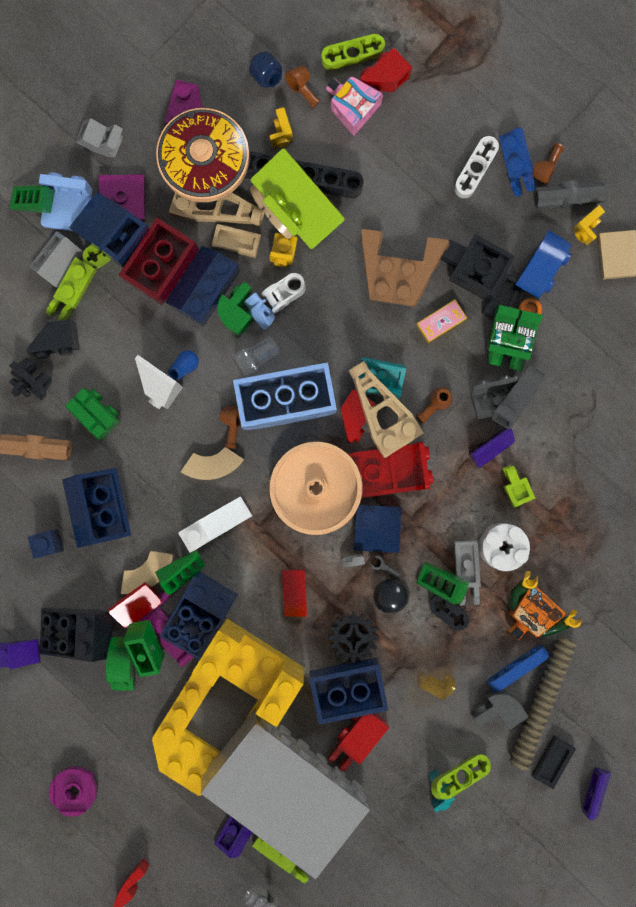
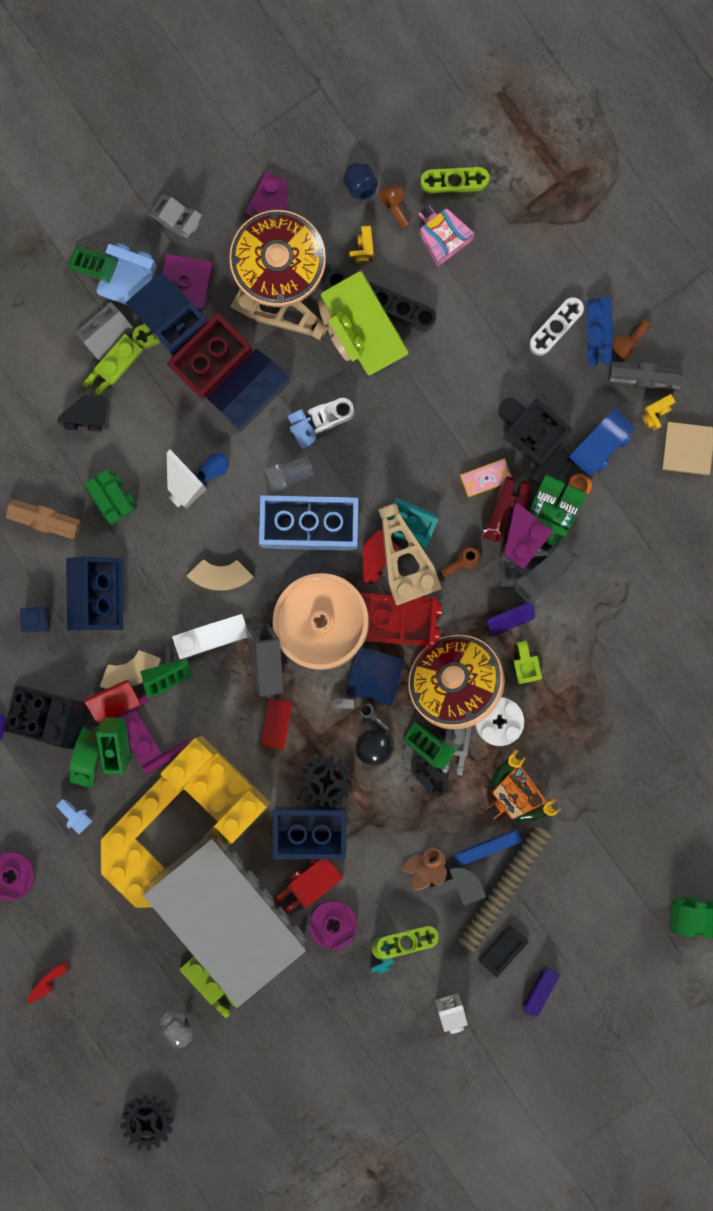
camera: 10 degrees right, 0 degrees up
(22, 373) = (48, 452): black hips -> none
(124, 724) = (77, 819): none -> light blue piece
(198, 615) = (174, 724): dark blue slope -> none
(230, 311) = (271, 423): green brick -> none
(230, 416) = (250, 531): dark orange bar -> none
(232, 838) = (165, 954): dark purple slope -> none
(236, 240) = (293, 350): tan tile -> none
(271, 534) = (265, 659): none -> dark grey slope
(283, 250) = (339, 371): yellow bracket -> none
(388, 72) = (485, 211): red slope -> none
(399, 279) = (449, 425): medium nougat wing -> none
(401, 771) = (329, 938): none -> magenta plate
(433, 686) = (397, 846): clear yellow bracket -> none
(457, 518) = (456, 682): none -> dish
(465, 704) = (426, 870): none -> nougat plate
(480, 365) = (494, 526): none -> dark red piece
(492, 367) = (525, 536): none -> magenta wing
(519, 833) = (451, 1013): none -> white slope

